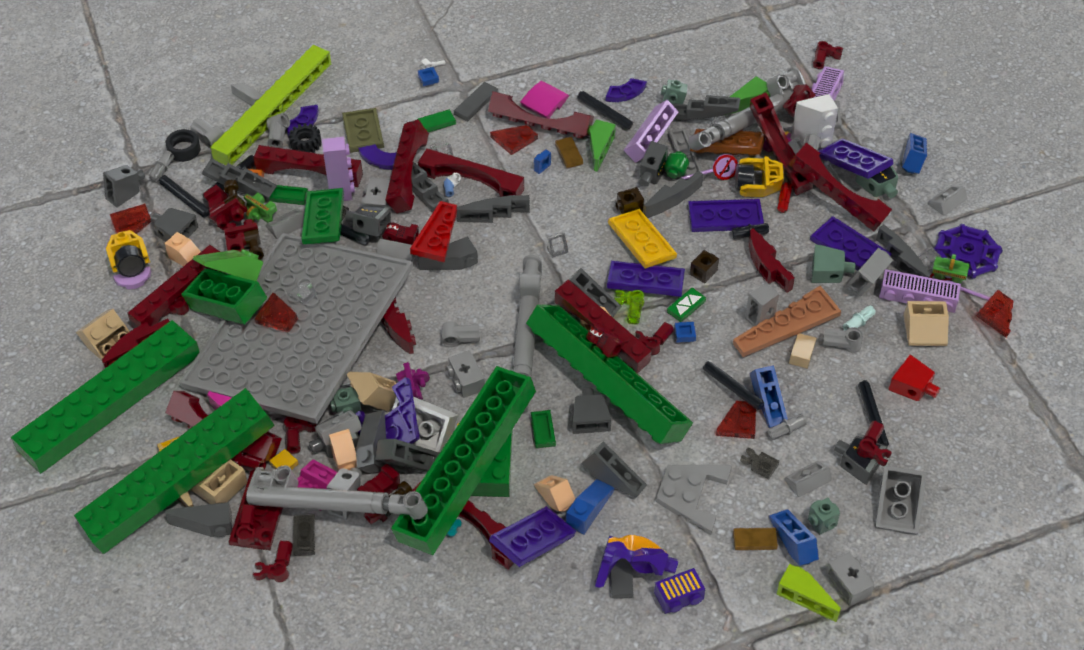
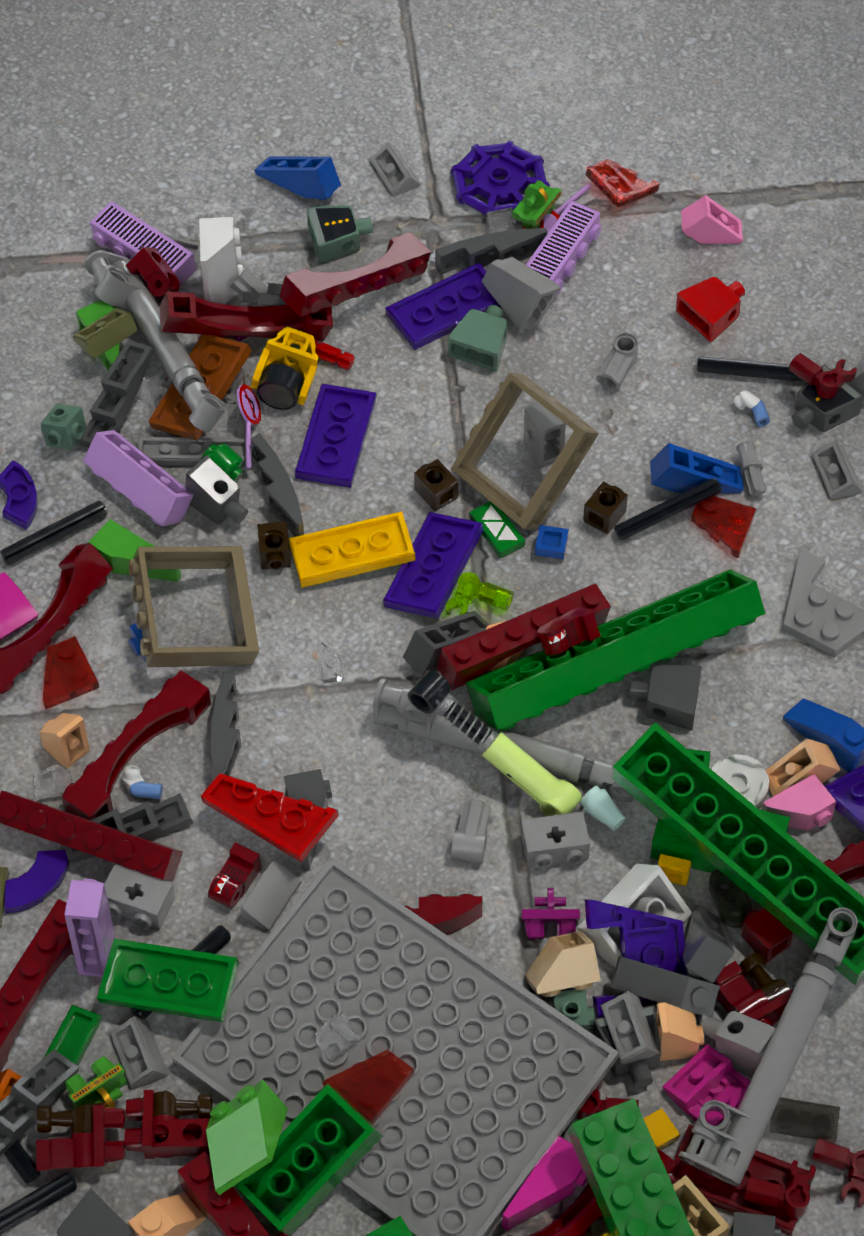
camera: 75 degrees left, 5 degrees up
(369, 219) = (193, 913): dark grey torso -> none
(466, 143) = (65, 738): none -> light nougat slope
(528, 277) = (553, 795): none -> piece
(529, 495) = (805, 803): none -> bright pink slope
(536, 462) = (745, 776): none -> white tile
(569, 152) = (120, 604): pearl gold tile -> none
(579, 194) = (202, 557): none -> dark tan window
(612, 470) = (779, 691): dark grey slope -> none
(658, 338) = (552, 577): dark red bar -> none
(707, 309) = (557, 476): none -> dark tan window
(722, 353) = (605, 507): none -> dark brown brick
(741, 232) = (382, 412): black axle -> none
(743, 89) = (106, 332): none -> olive slope
(761, 464) = (807, 513): clear smoke plate -> none
(764, 259) = (440, 410): dark red slope -> none
(800, 316) = (560, 377): nougat wing -> none
(802, 350) = (621, 414): tan slope -> none
(825, 49) = (39, 219): dark red bar -> none
(843, 420) = (758, 408): none -> arm
(855, 158) = (295, 242): dark purple tile -> none
(859, 319) = (587, 335): light aqua axle -> none
(926, 323) = (623, 261): tan slope -> none
(987, 368) = (711, 223): none -> bright pink slope

